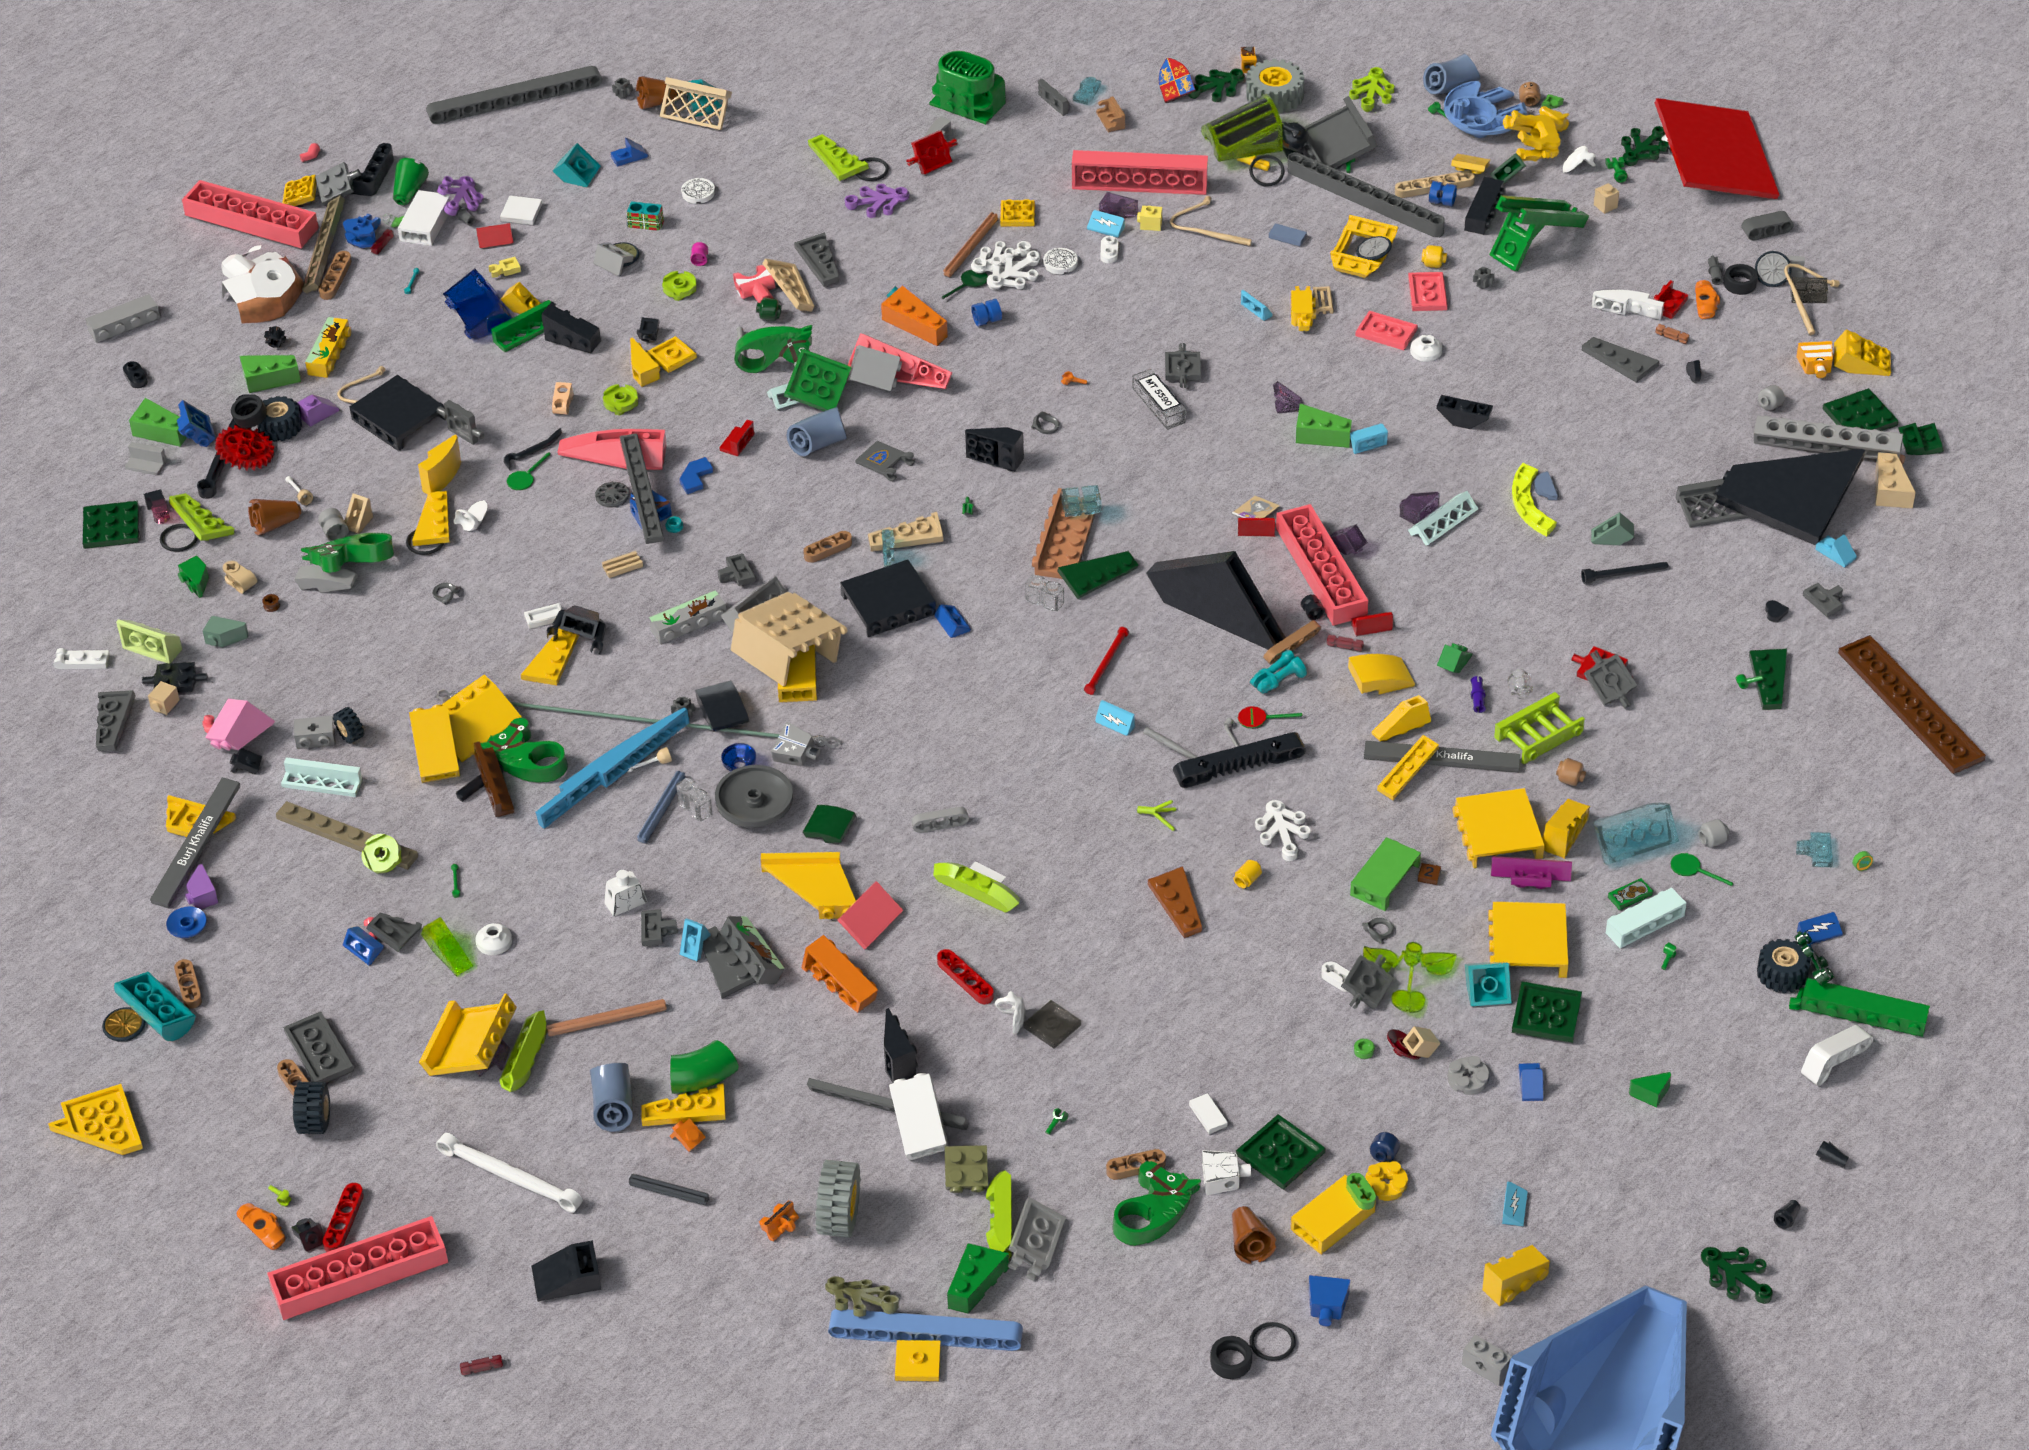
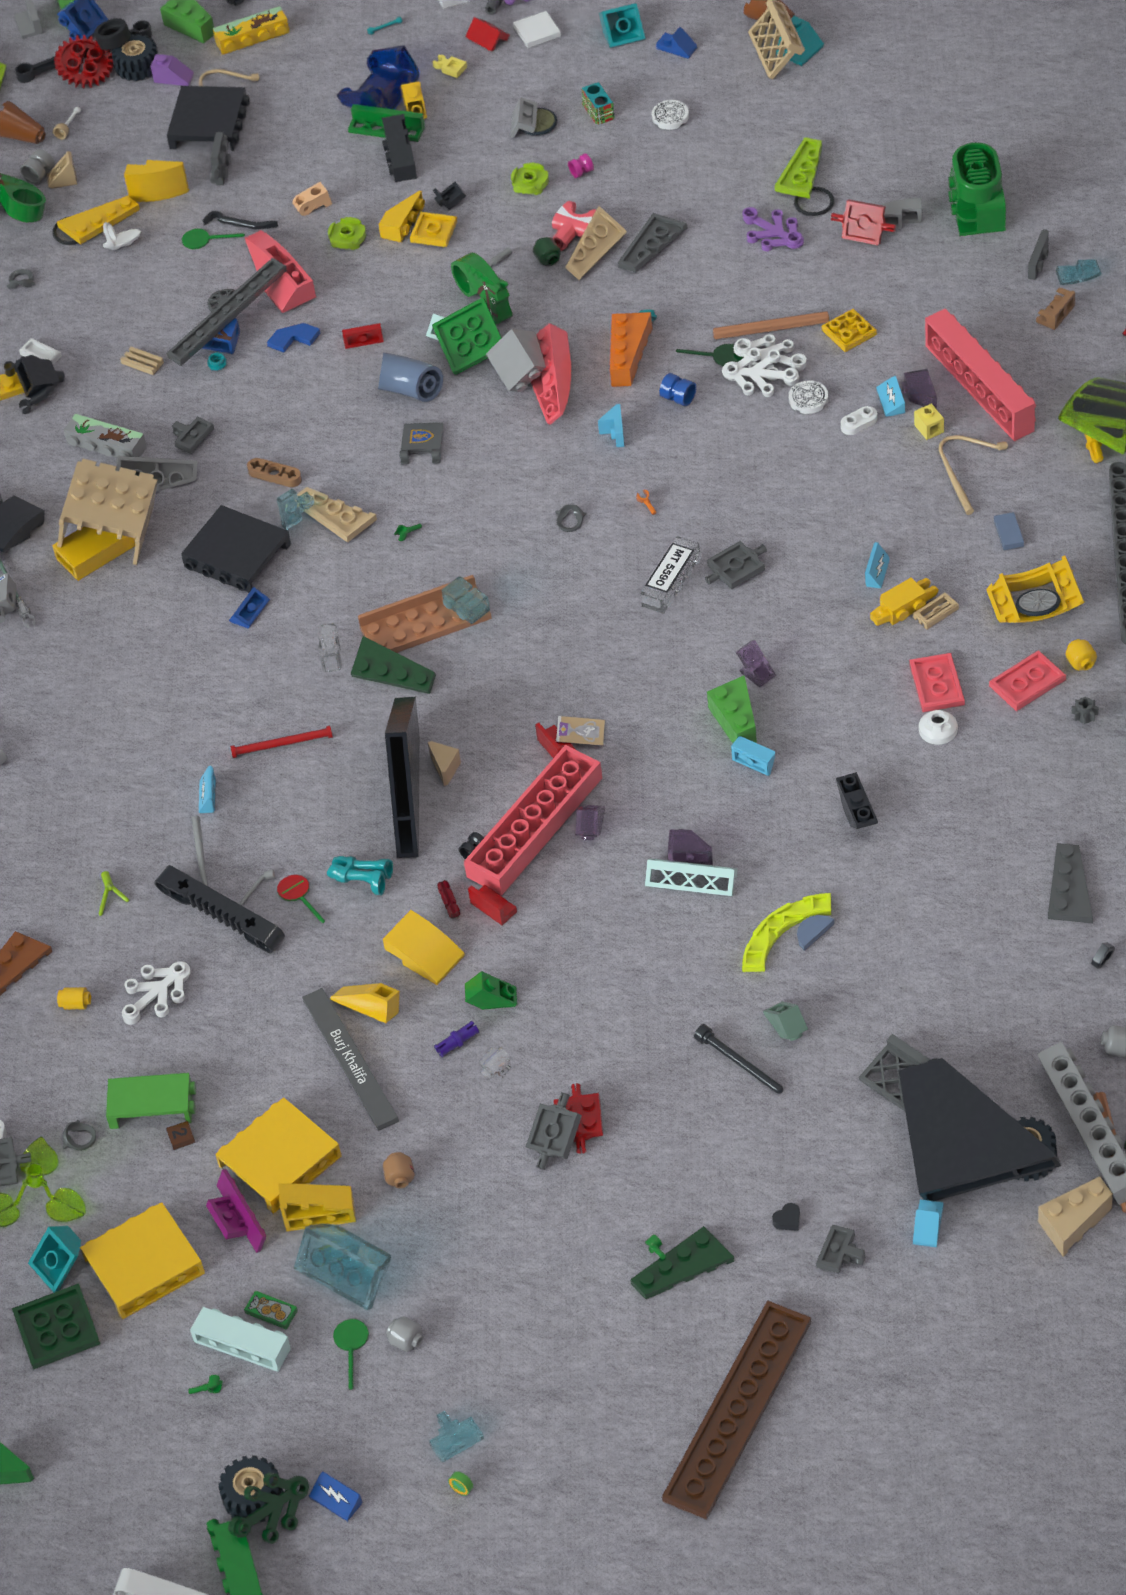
camera: 60 degrees right, 5 degrees up
(986, 357) = (612, 423): none -> medium azure slope
(995, 446) = (491, 503): black slope -> none
(1262, 183) = (1089, 477): black tyre -> none
(1292, 641) = (411, 858): medium nougat beam -> none
(1408, 767) = (304, 1039): yellow plate -> none
(1537, 713) = (450, 1093): lime fence -> none

